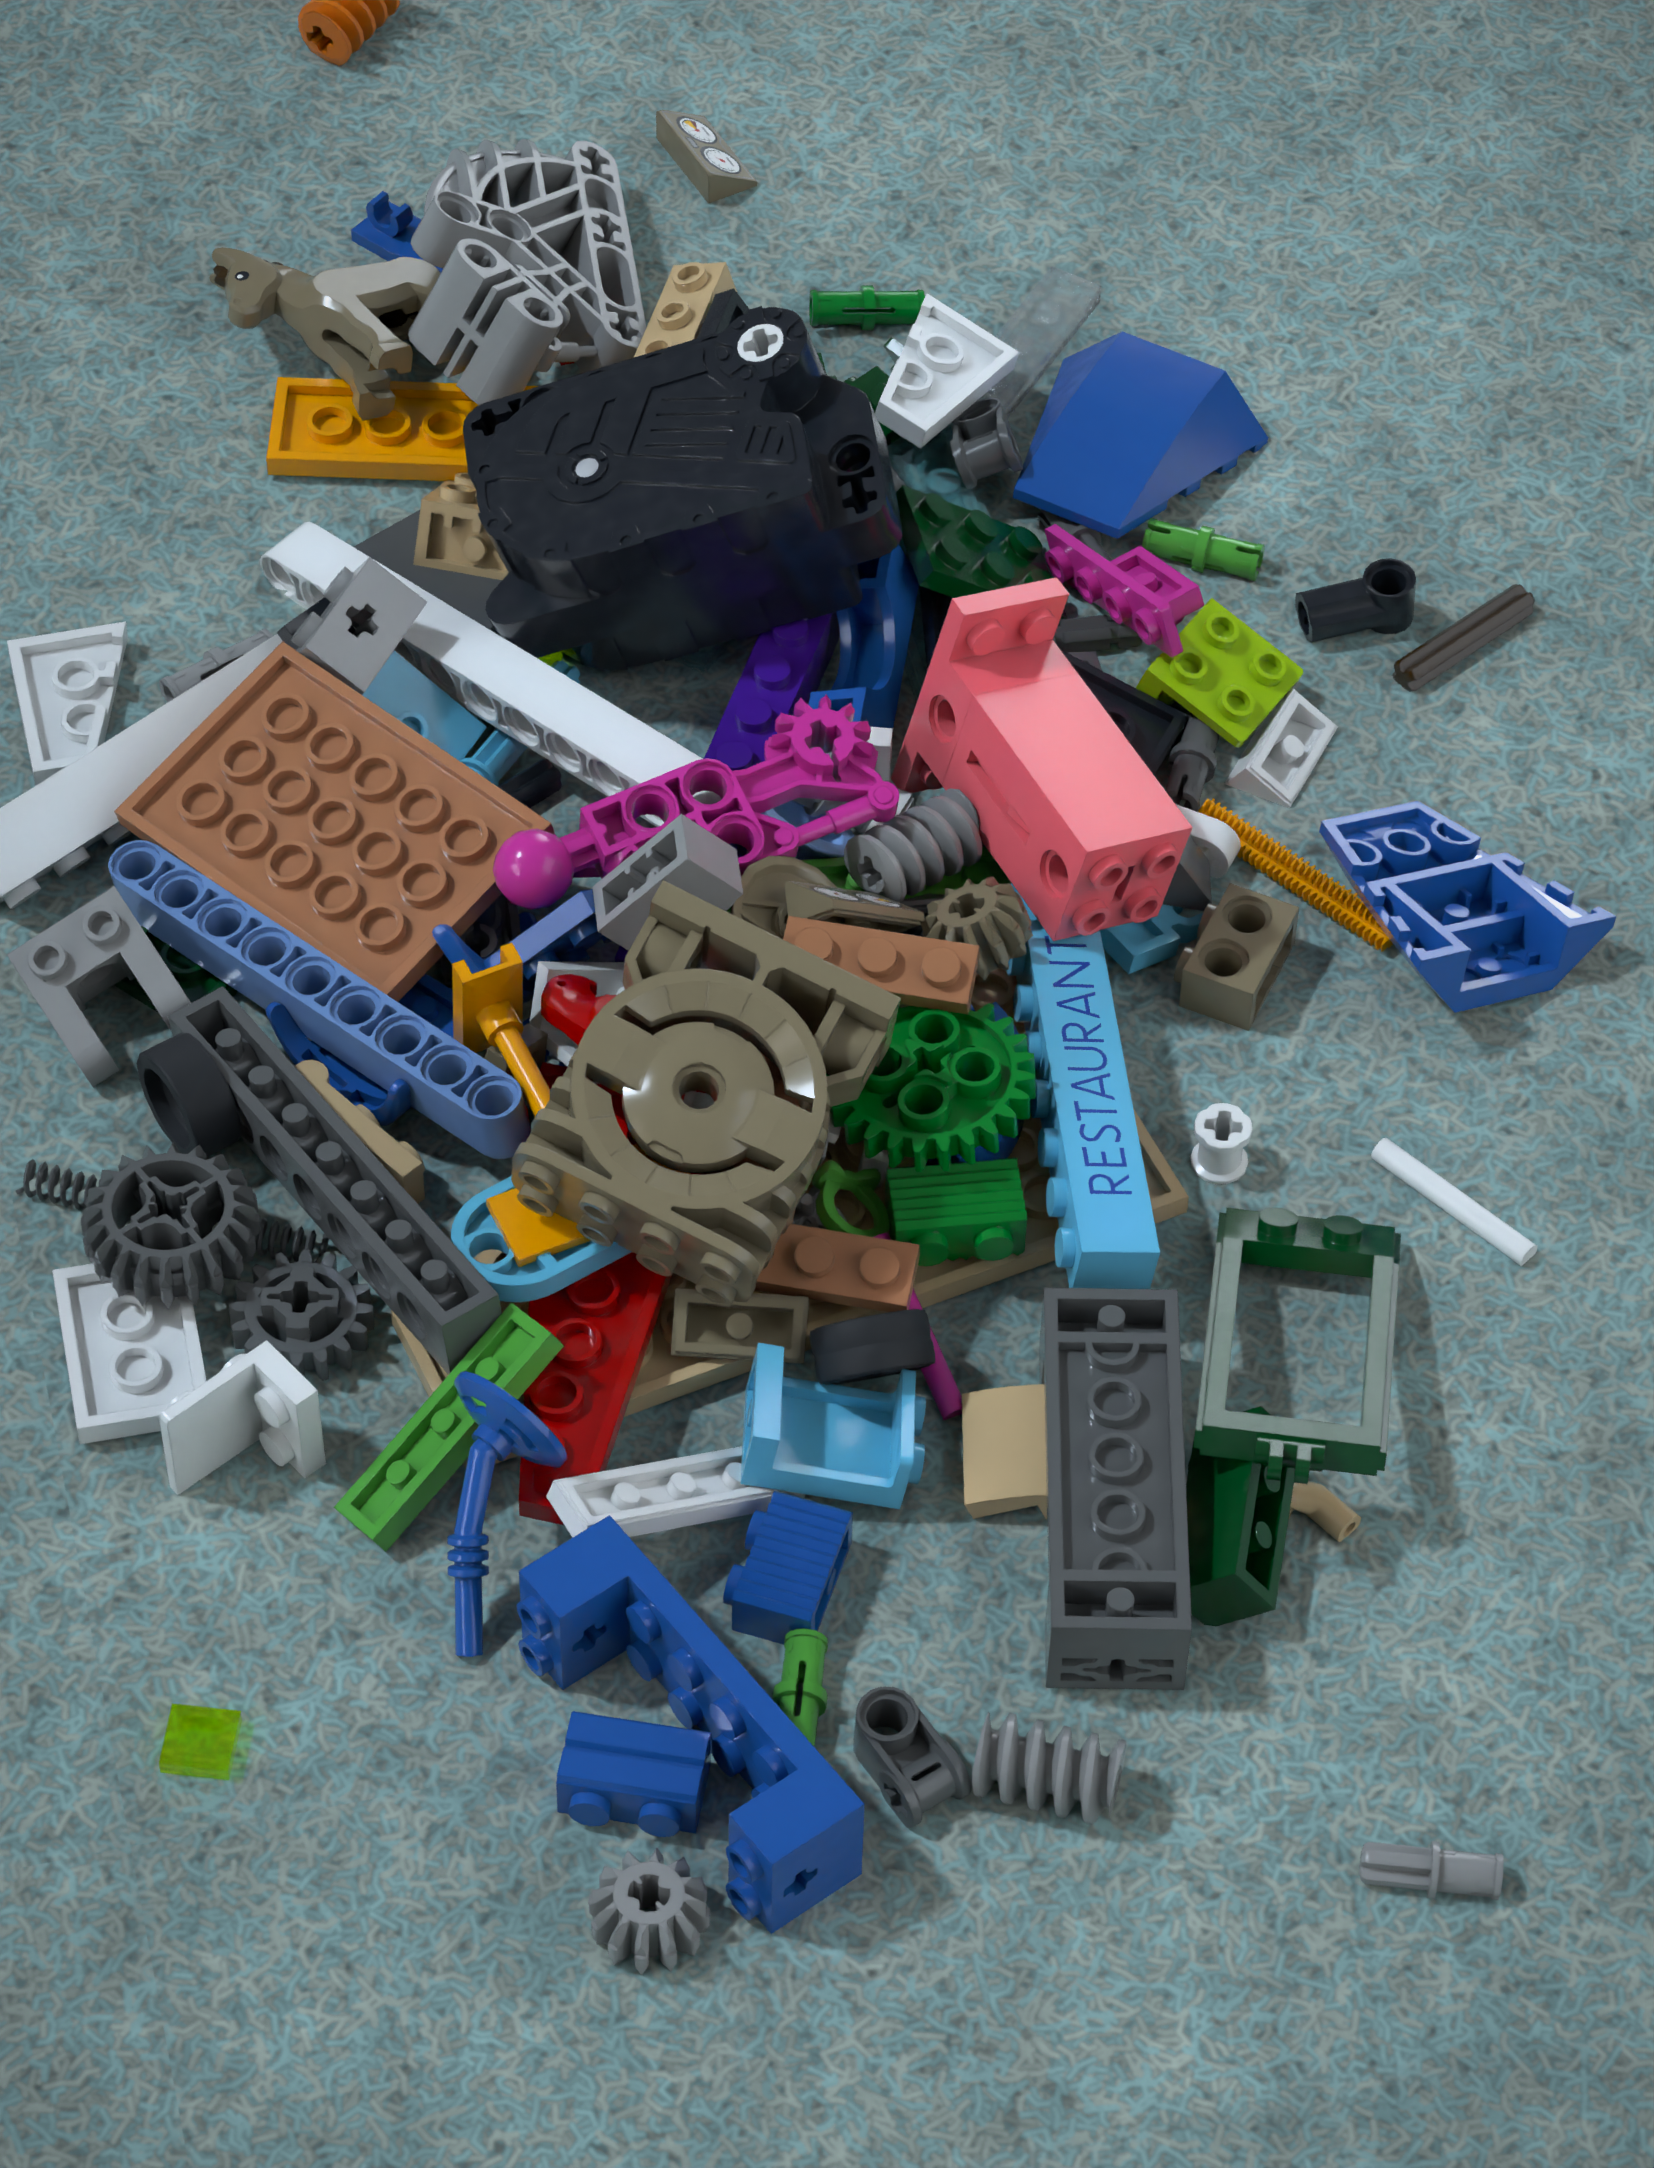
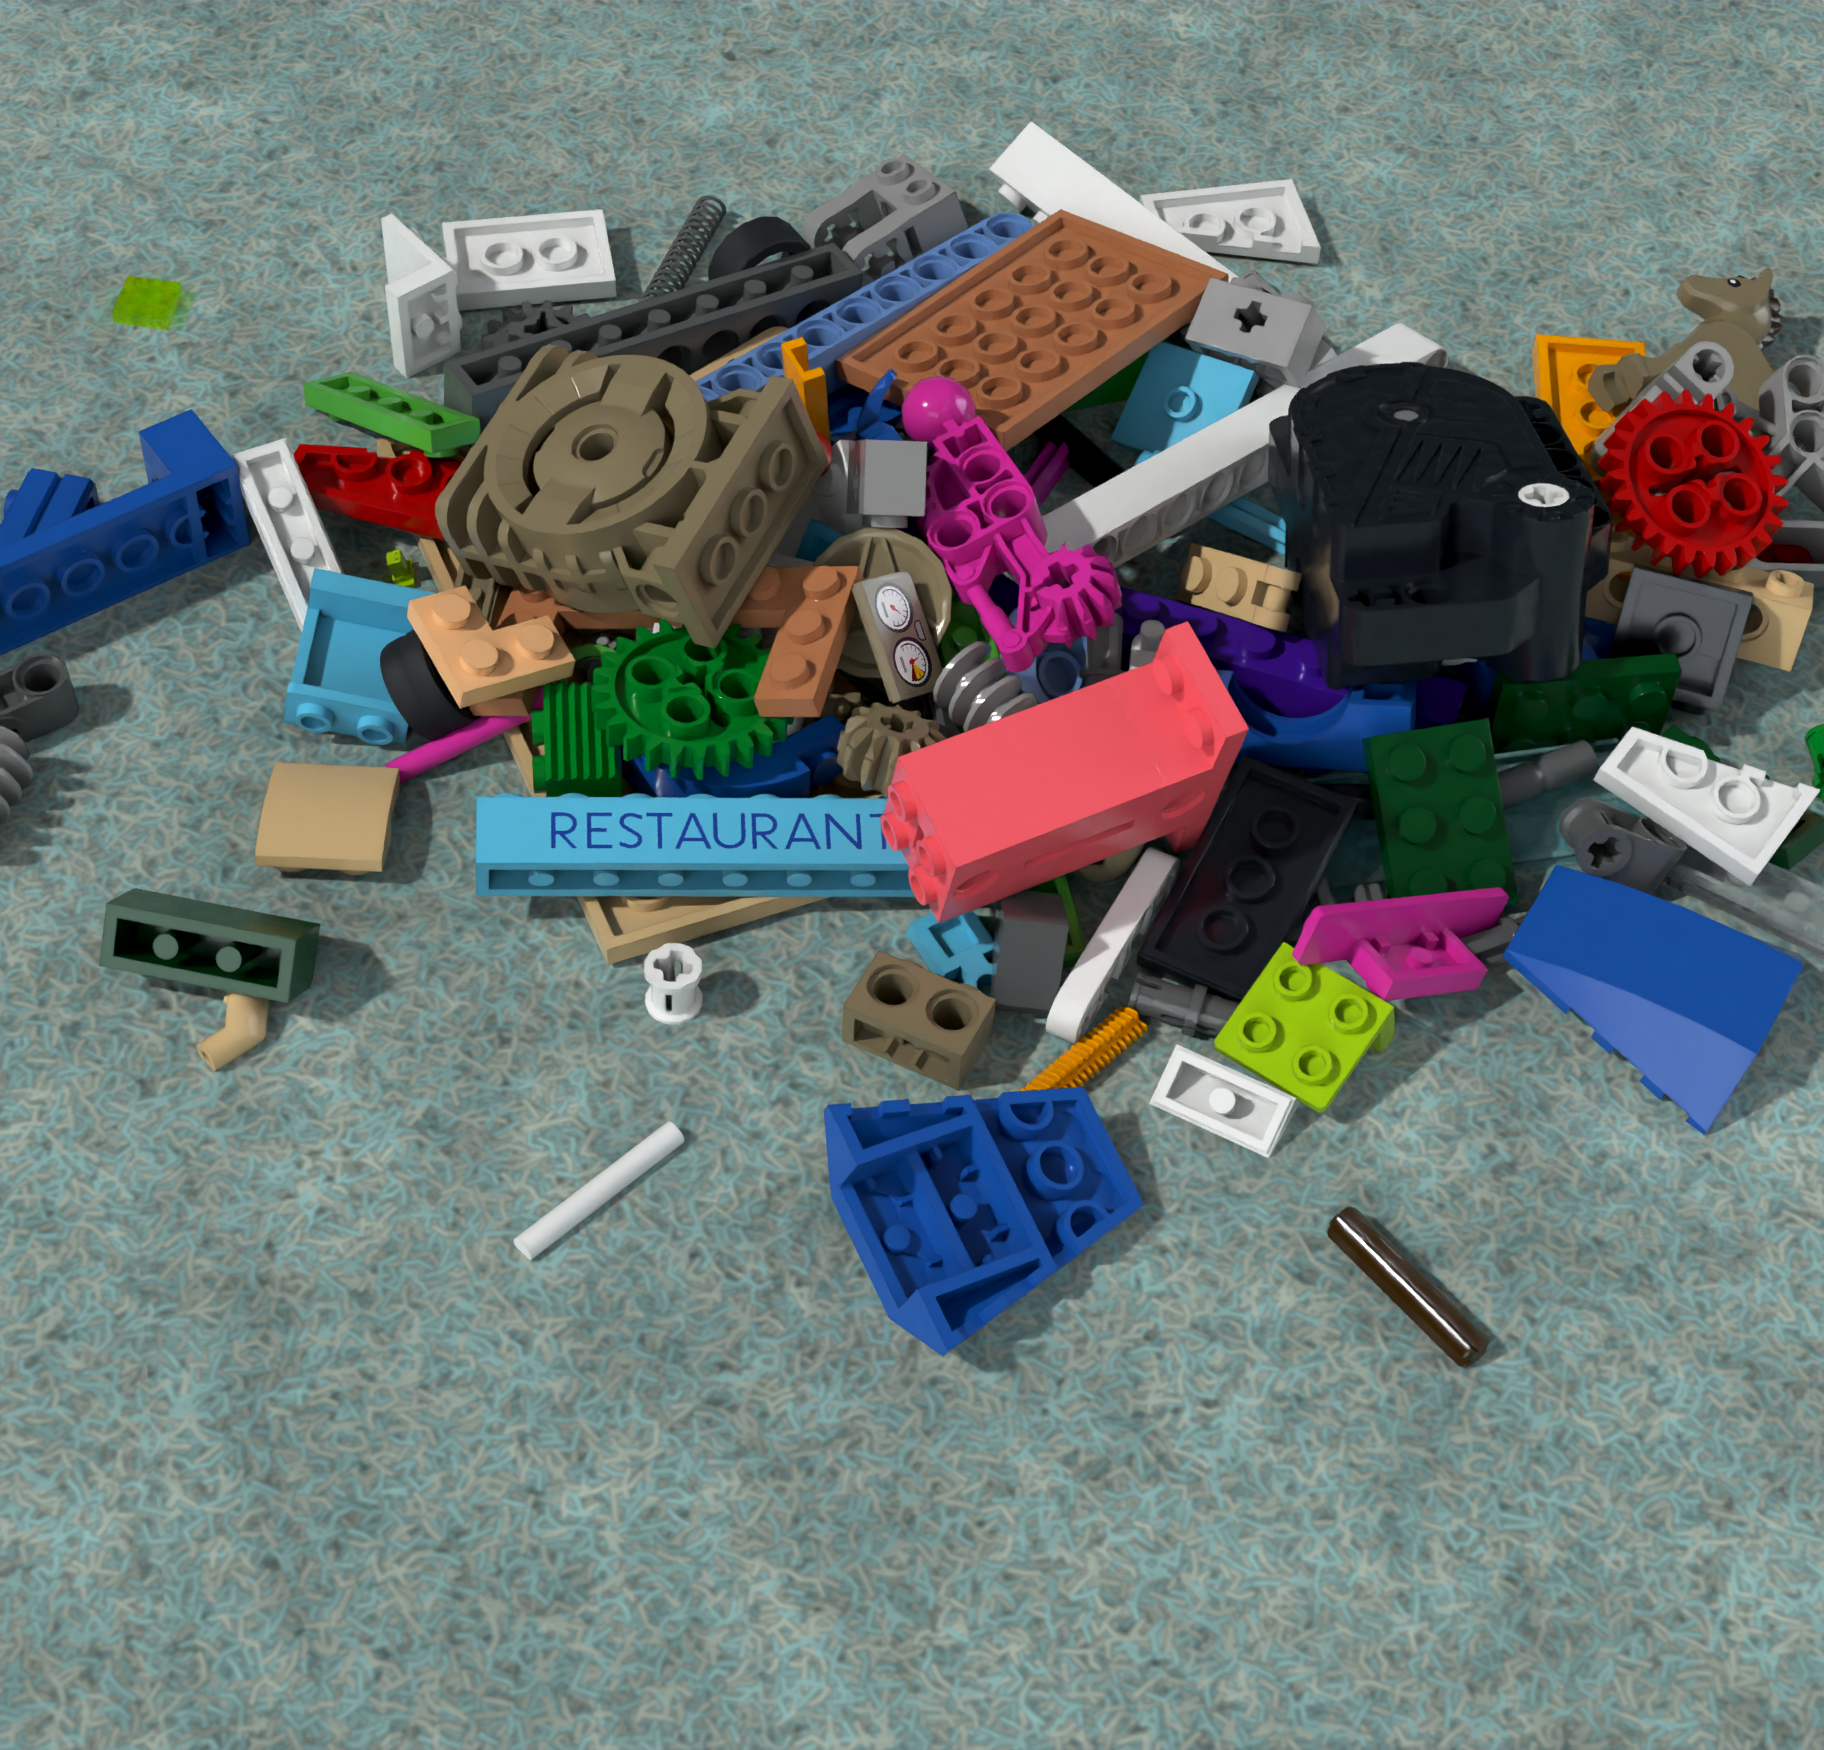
camera: 90 degrees right, 0 degrees up
(171, 1209) = (619, 252): dark grey gear -> none
(502, 1428) = (326, 397): blue dish -> none
(611, 296) = (1677, 439): none -> red gear
(653, 1431) = (402, 570): none -> lime piece
(692, 681) = (1238, 586): none -> tan plate
(790, 1567) = (226, 640): blue brick -> none
(803, 1663) = (98, 644): bright green pin -> none
(884, 1263) = (485, 662): none -> light nougat plate
(1115, 1490) = (249, 826): dark grey plate -> none
(1203, 549) = (1516, 1049): bright green pin -> none
(1310, 1244) = (541, 1042): animal -> none
(1377, 602) = (1436, 1177): black piece -> none

